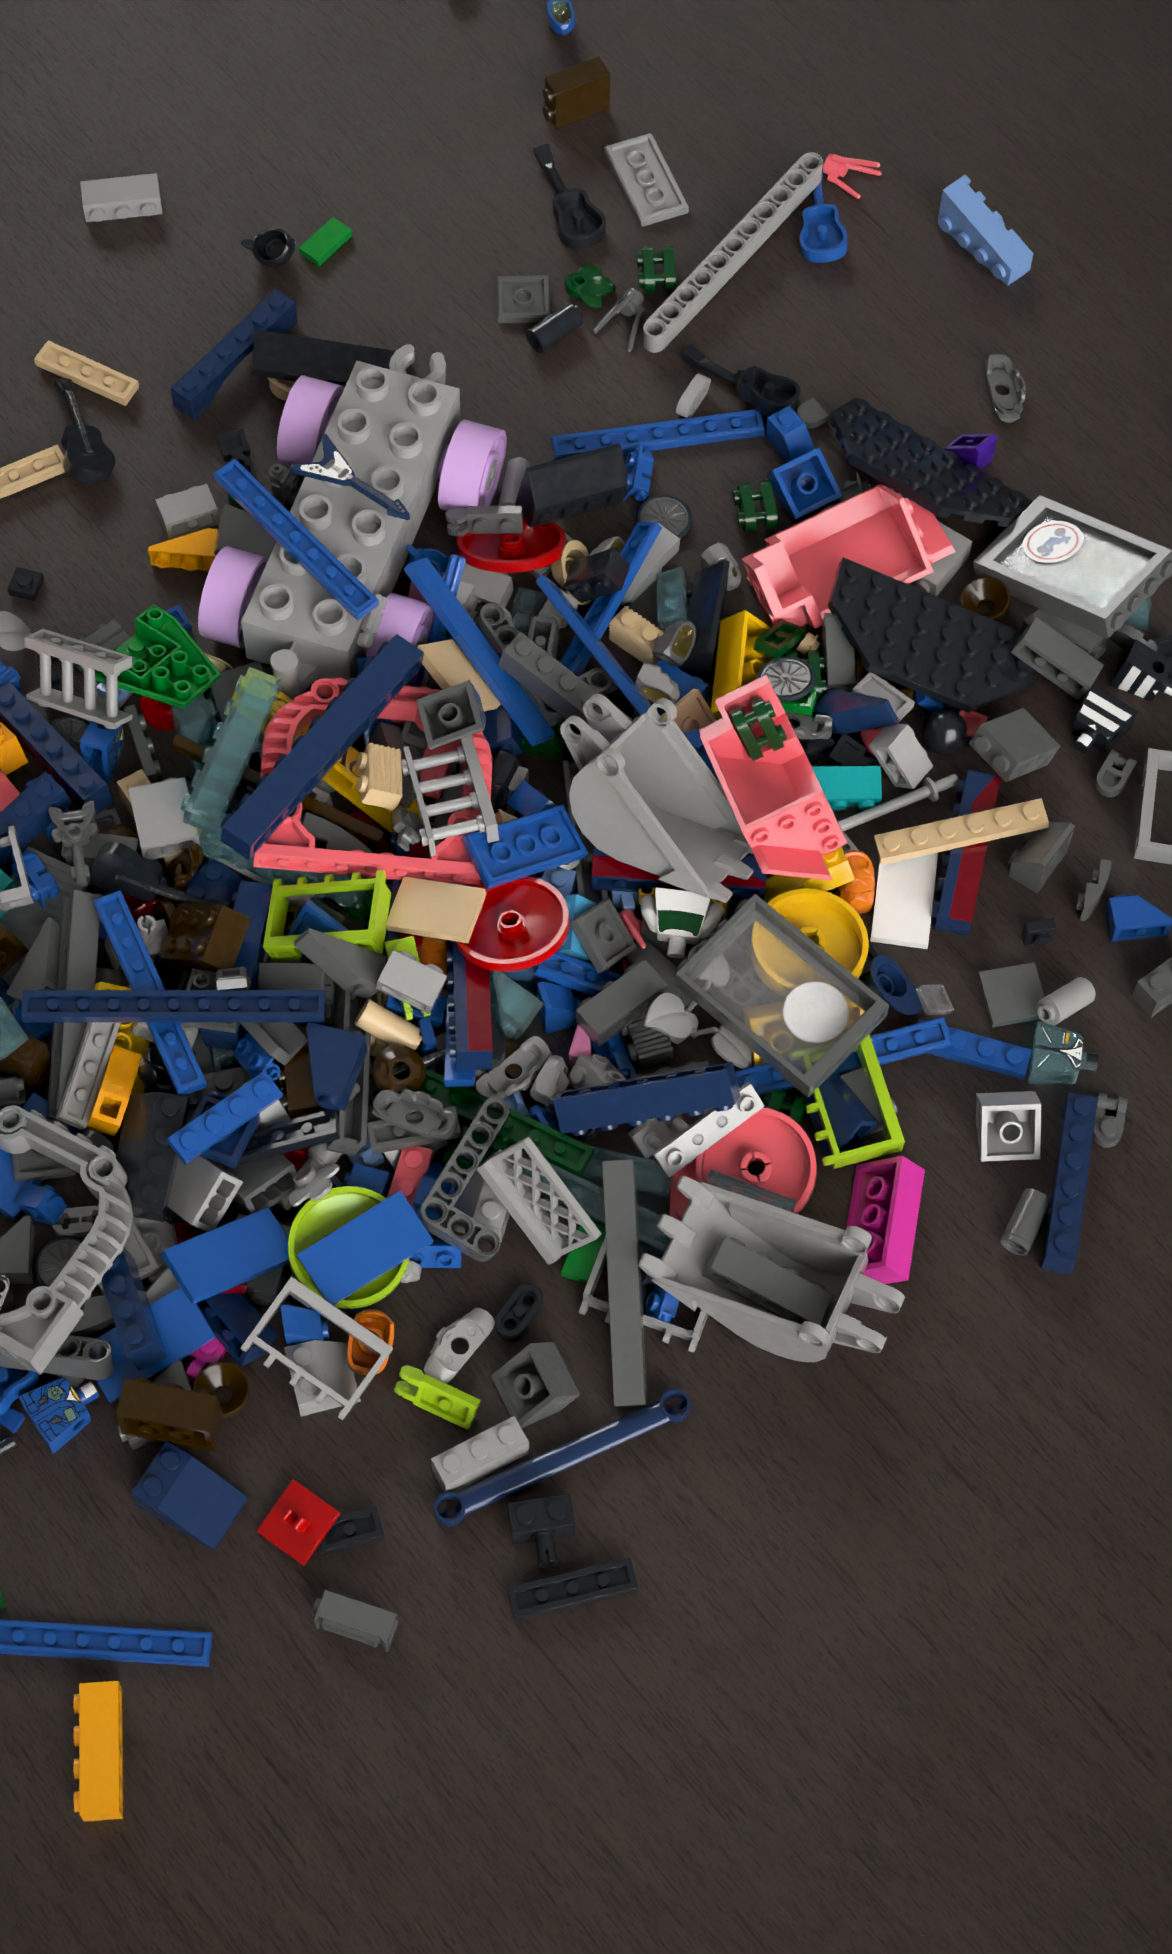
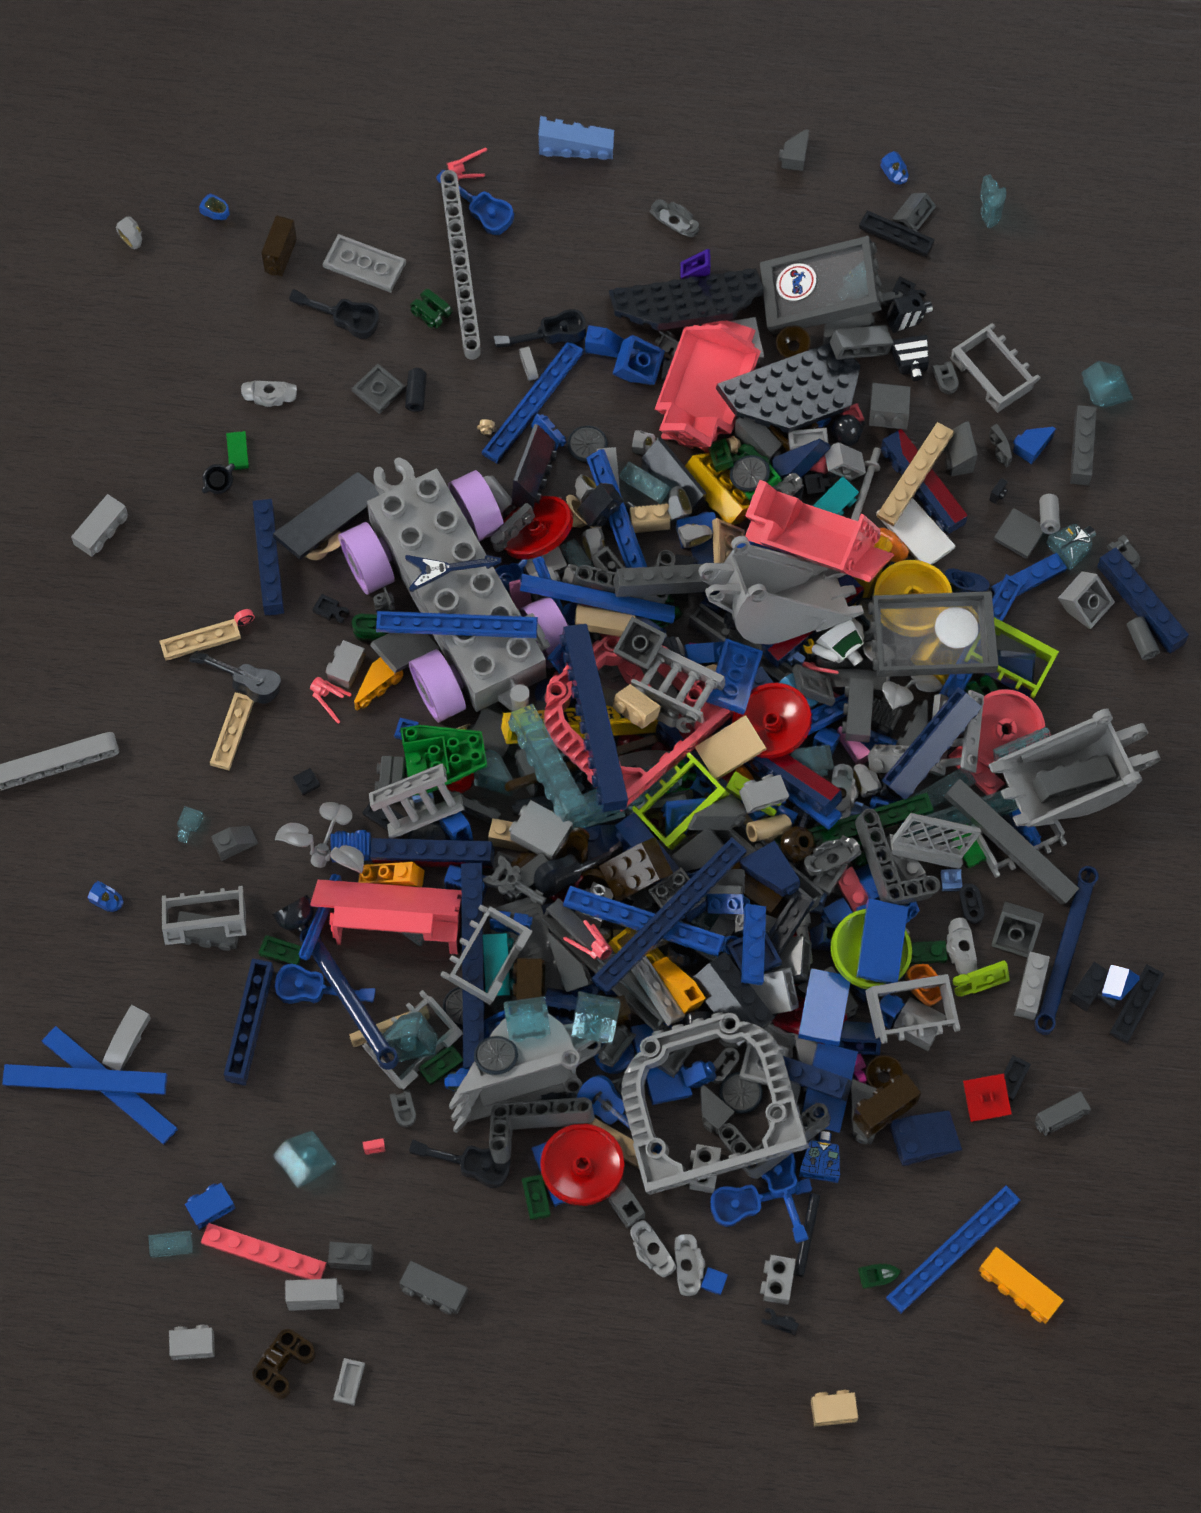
camera: 45 degrees left, 5 degrees up
(76, 975) = (601, 948): none -> coral plant
(140, 514) = (322, 688): none -> coral plant
(148, 388) = (244, 617): none -> tile
(231, 978) = (680, 875): dark grey tile -> none
(312, 1183) = (824, 935): light grey plate -> none
(414, 1314) = (928, 952): none -> dark green plate
(428, 226) = (255, 391): none -> light grey piece
(528, 1268) = (951, 879): none -> medium blue tile
(571, 1543) = (1119, 982): none -> slope
(583, 418) = (486, 427): none -> tan plate
(589, 286) = (405, 350): dark green plate -> none
(594, 644) = (652, 543): blue tile -> none
(628, 305) = (439, 342): dark grey plant -> none
(747, 516) = (627, 394): dark green brick -> none
(773, 734) = (788, 507): dark green brick -> none
(812, 414) = (596, 318): dark grey tile -> none
(887, 1207) = (1077, 693): dark pink slope -> none
(934, 999) = (987, 570): clear tile -> none

